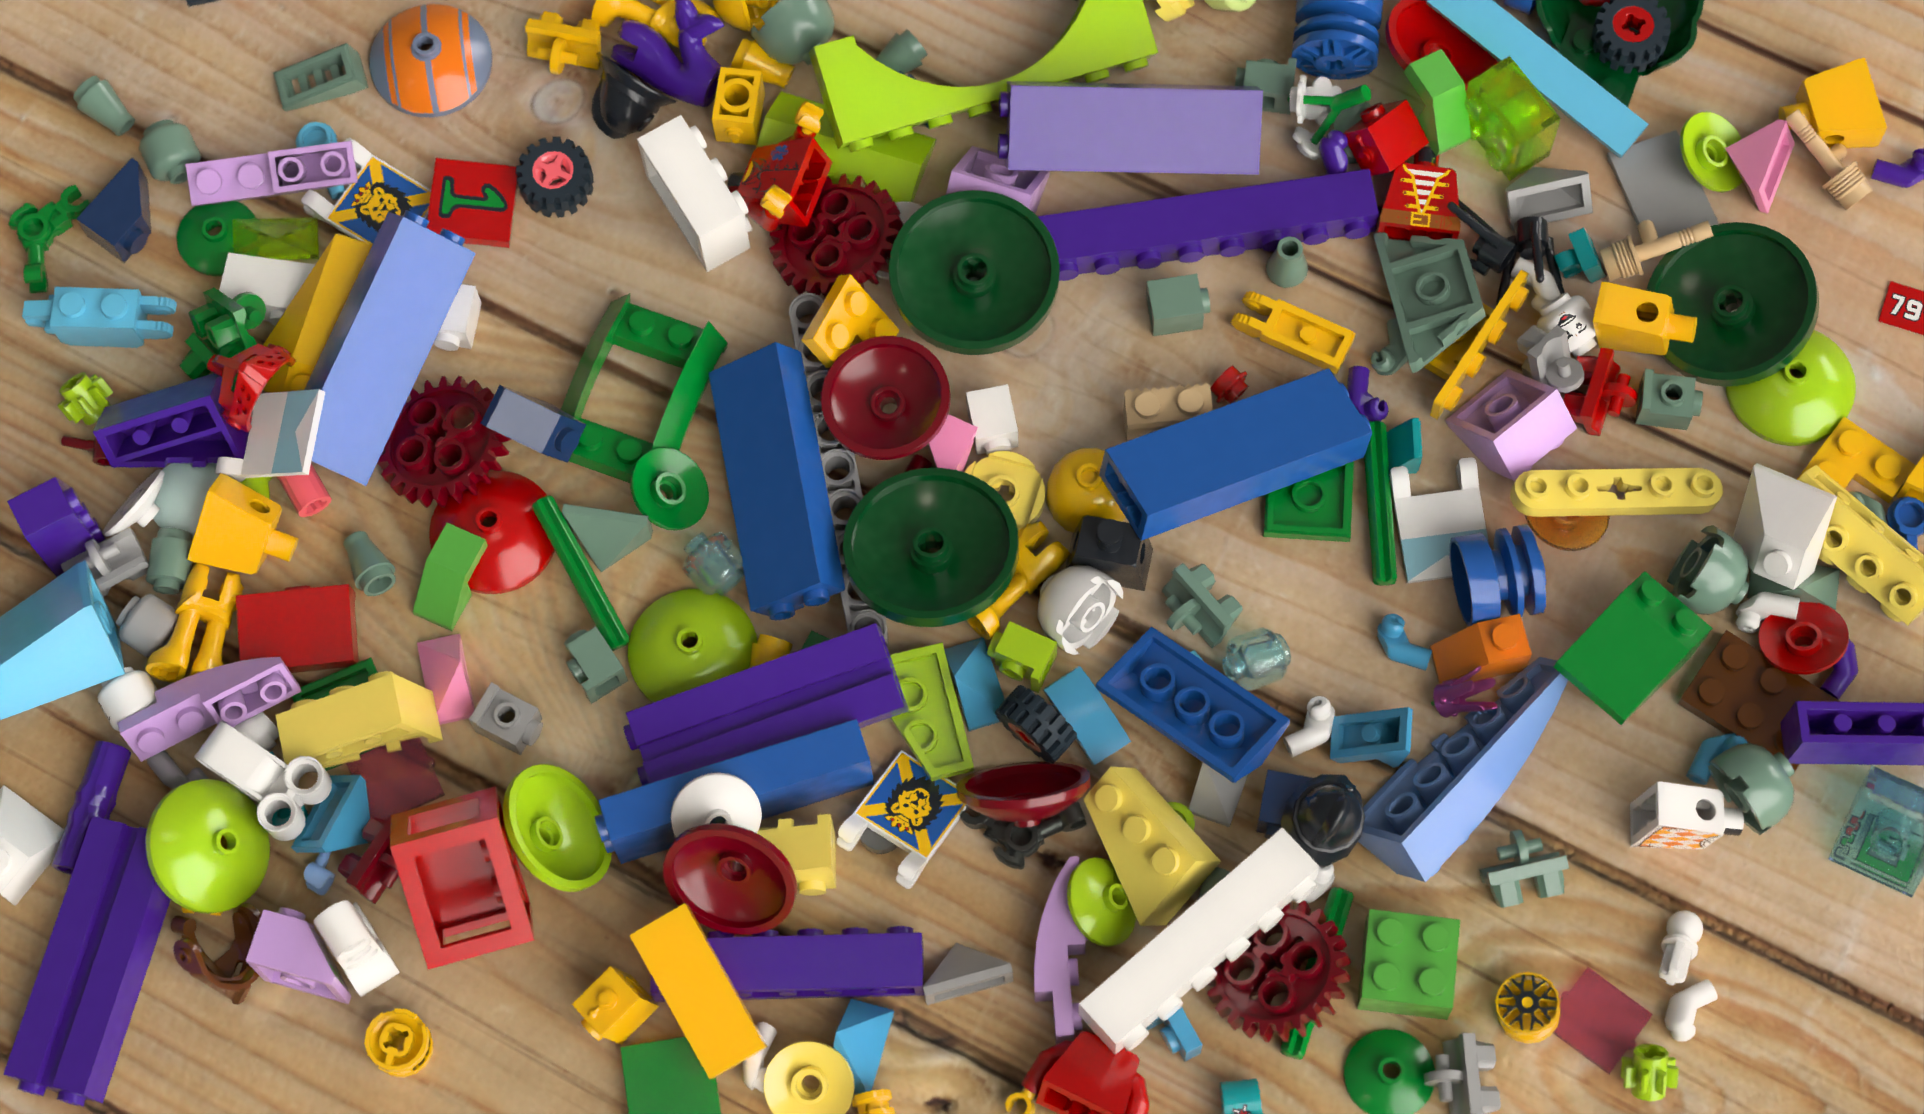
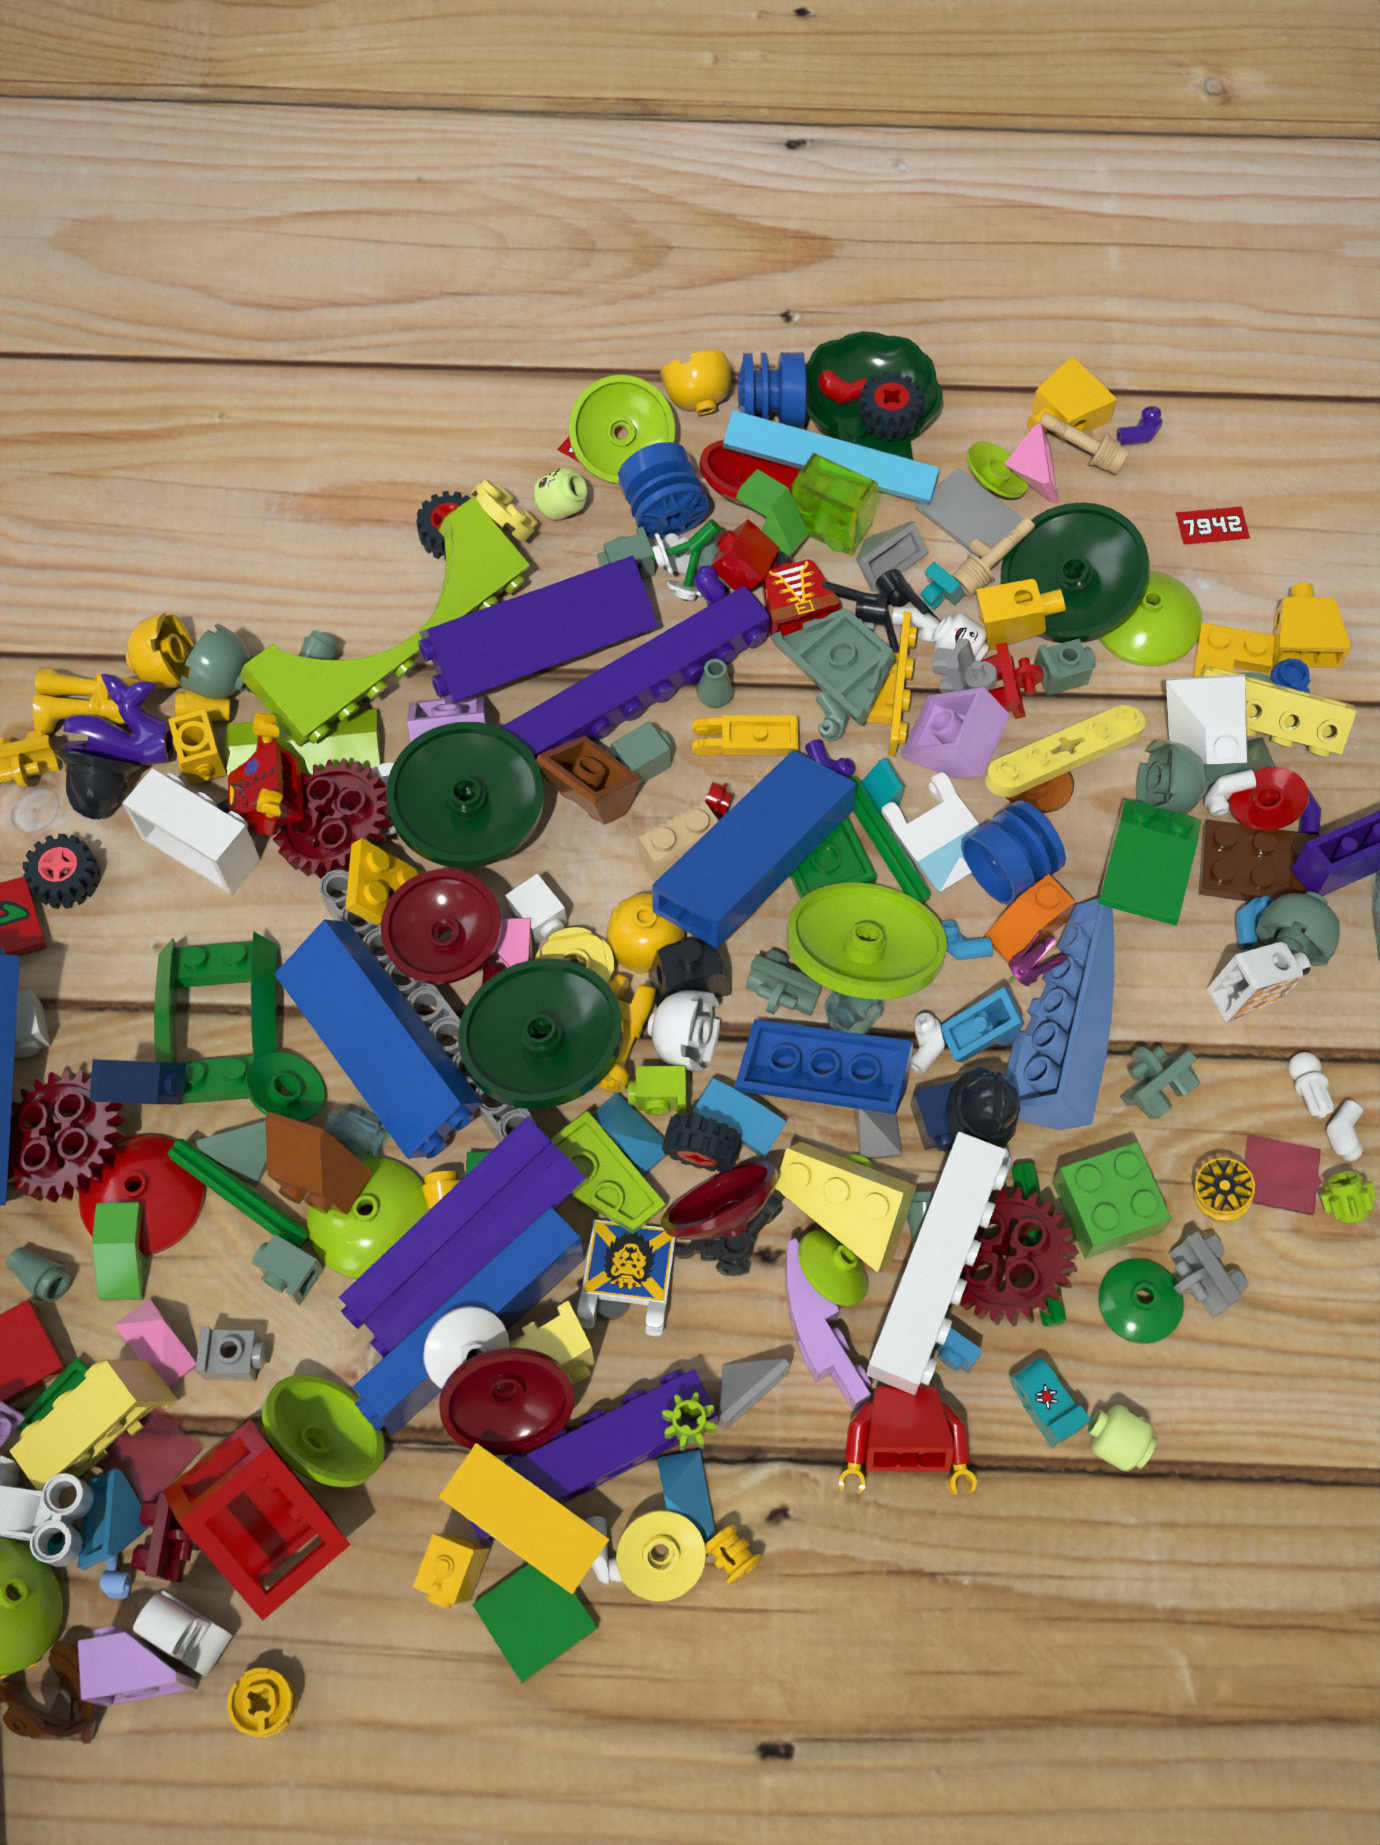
camera: 30 degrees left, 5 degrees down
(658, 578) = (312, 1165): none -> dark orange slope
(900, 981) = (693, 1410): none -> lime gear
(1109, 308) = (590, 778): none -> dark orange slope
(1299, 598) = (866, 940): none -> lime dish

